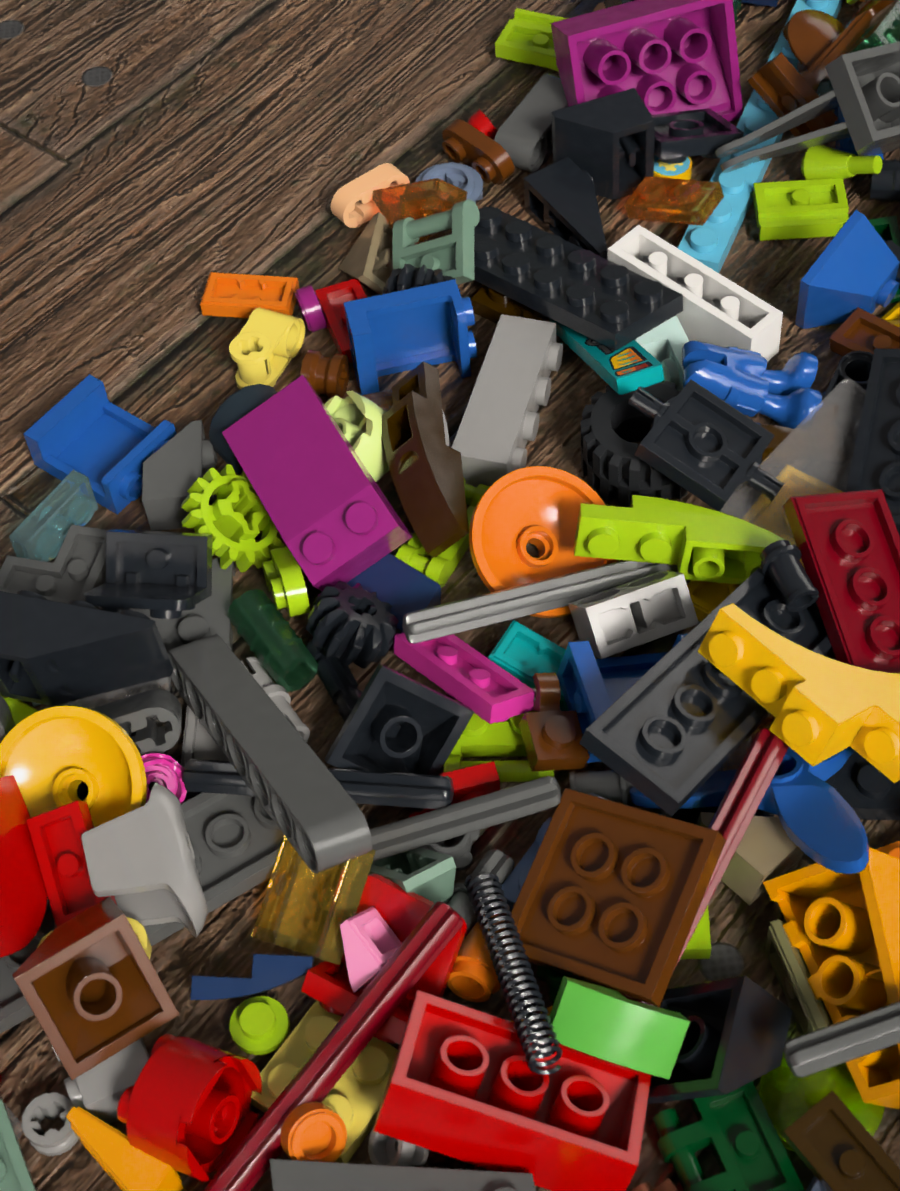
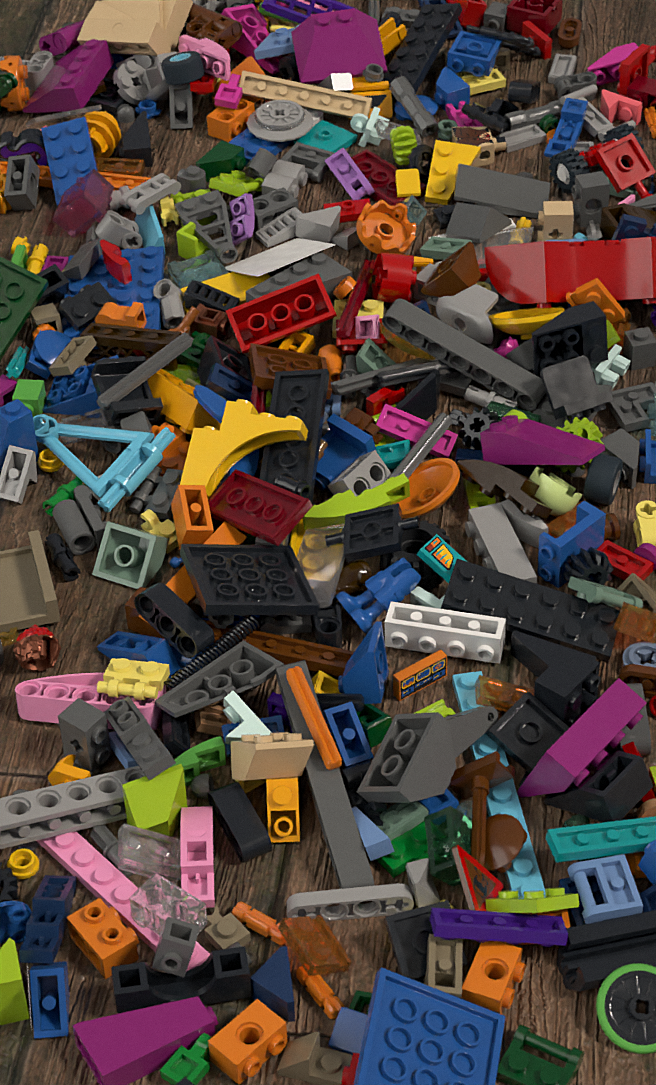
camera: 145 degrees right, 10 degrees down
(62, 859) = (509, 303): red plate -> none
(535, 1028) = (333, 362): black piece -> none
(617, 1028) = (266, 338): bright green slope -> none
(741, 945) = (228, 384): none -> dark blue slope
(768, 272) = (420, 675): none -> tile

